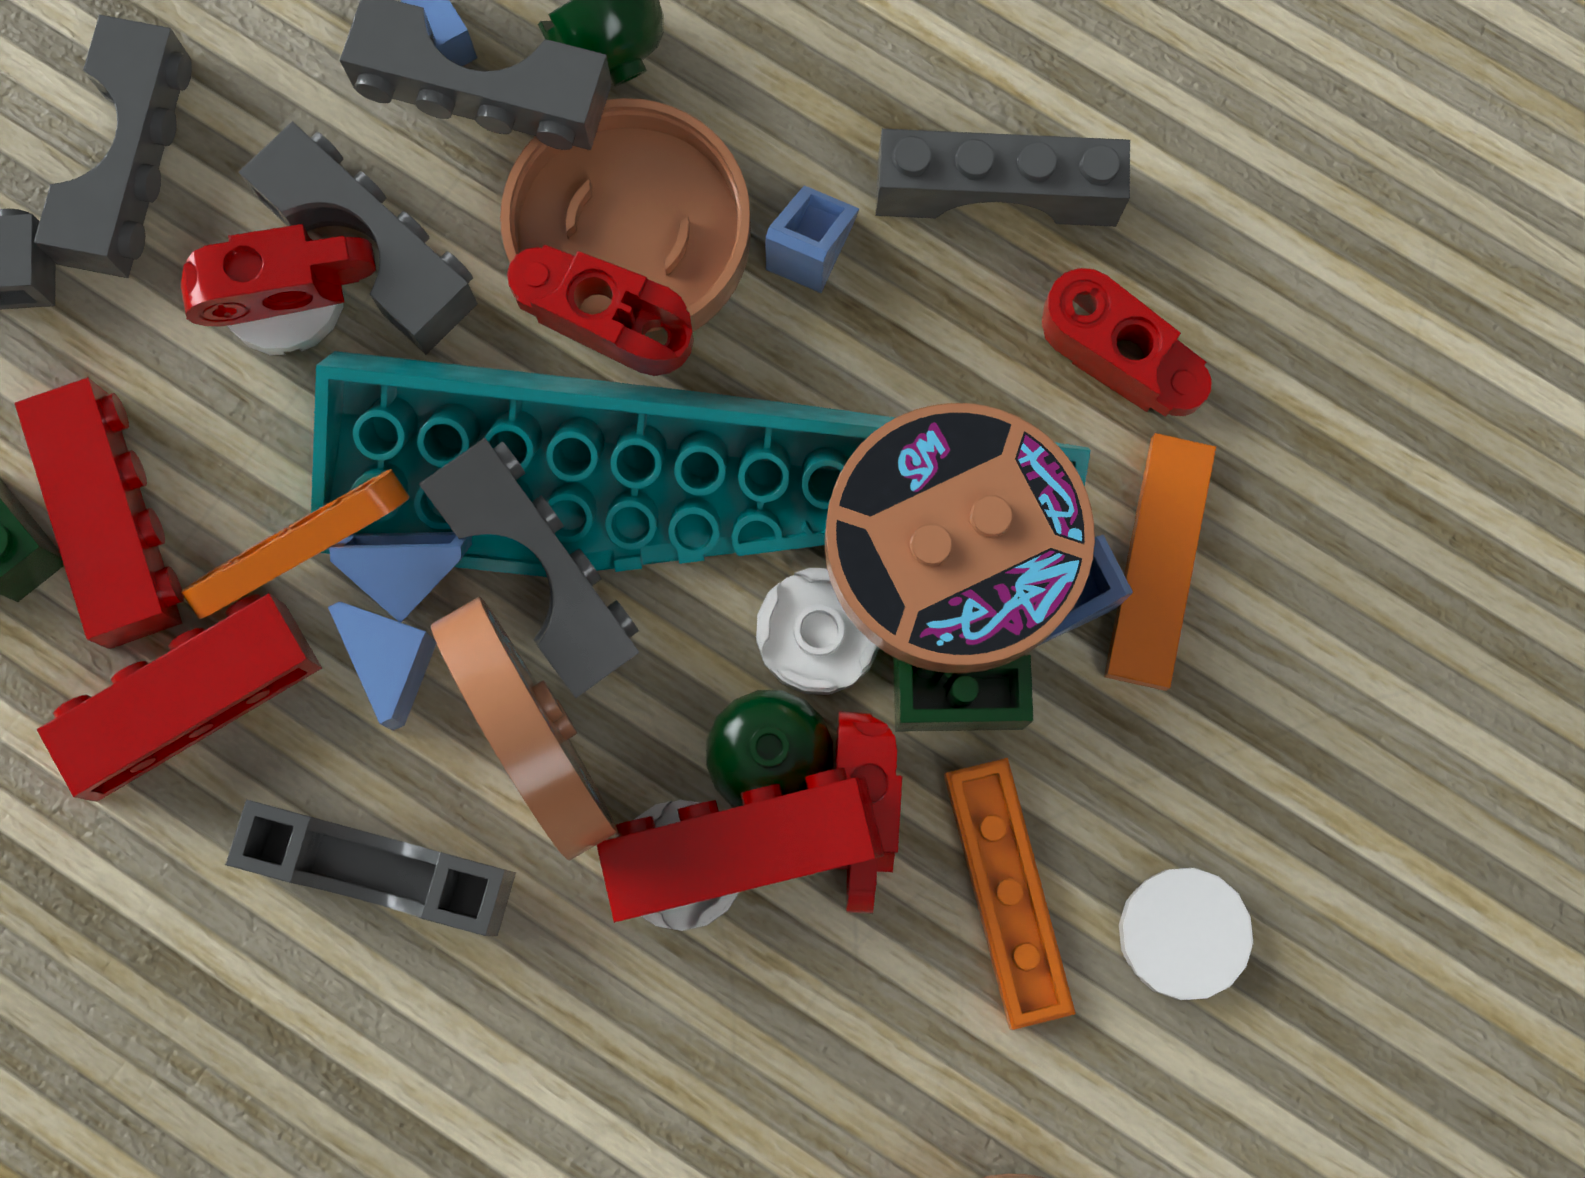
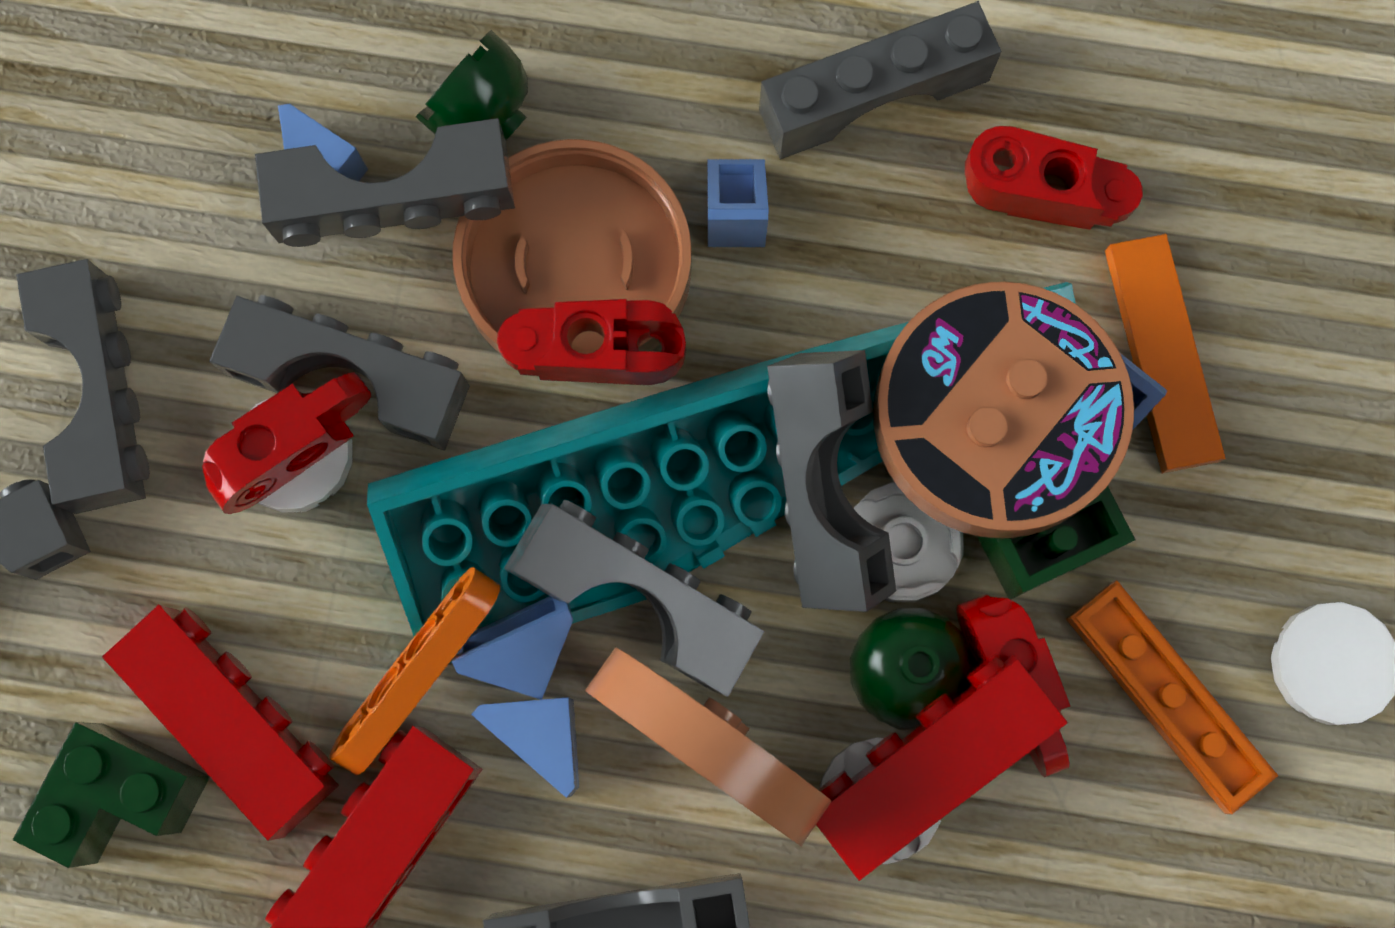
camera: 20 degrees left, 0 degrees up
(743, 605) = (837, 553): none -> dark grey arch

